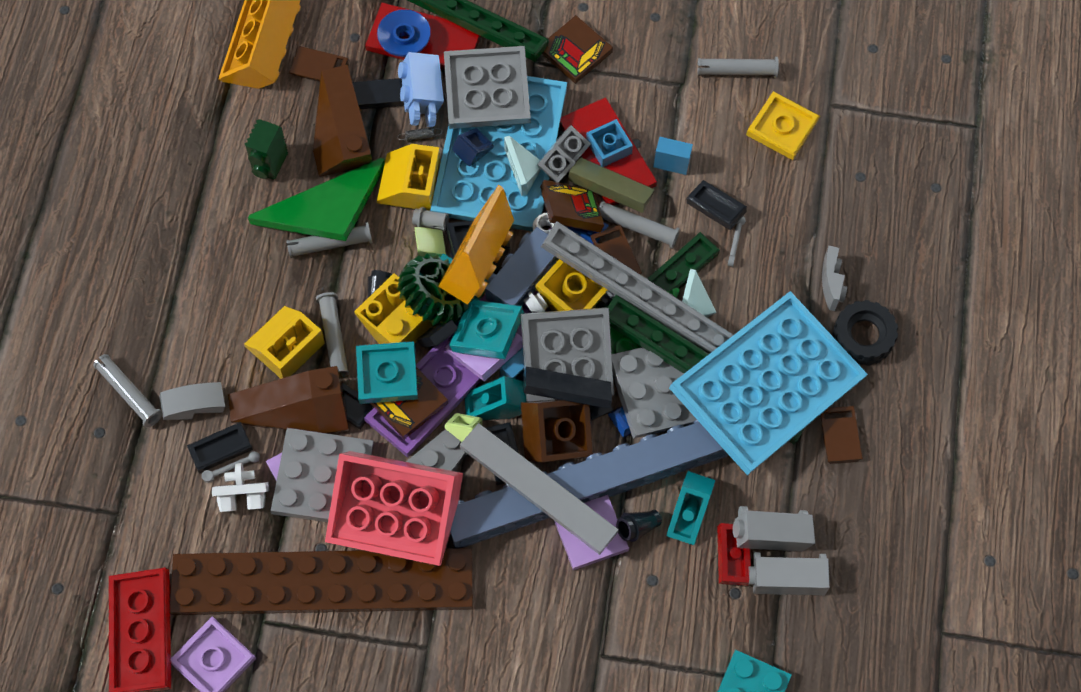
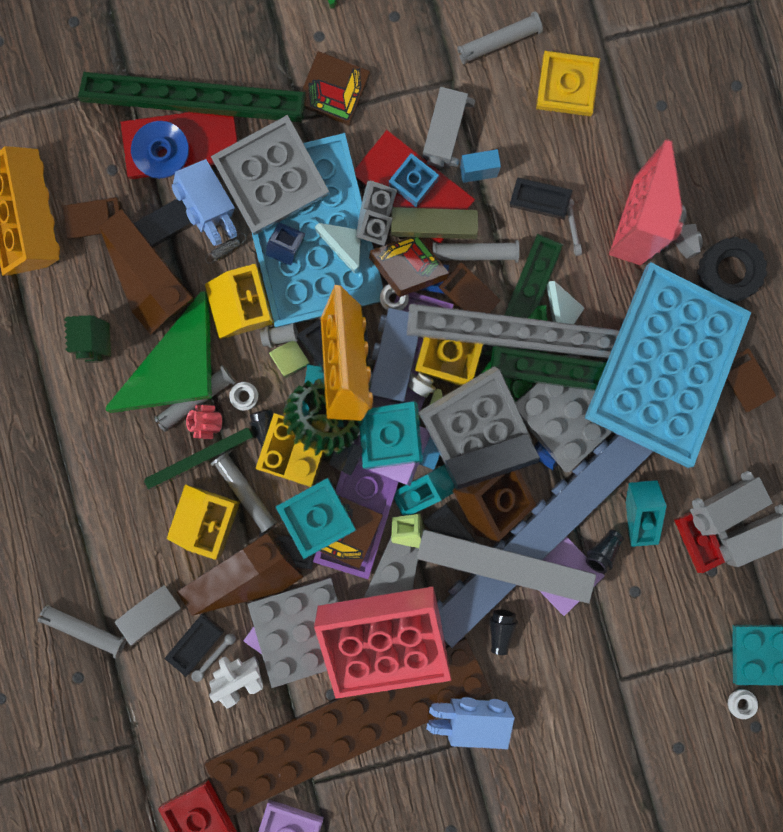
camera: 20 degrees left, 20 degrees up
(308, 289) = (200, 458): none -> dark green tile
(328, 260) = (204, 421): none -> coral gear
(370, 250) = (235, 396): none -> white plate
(442, 620) = (473, 722): none -> light blue hinge
(509, 554) = (502, 630): none -> black cone
(657, 115) = (445, 128): none -> light grey brick
(795, 241) = (651, 210): none -> coral slope

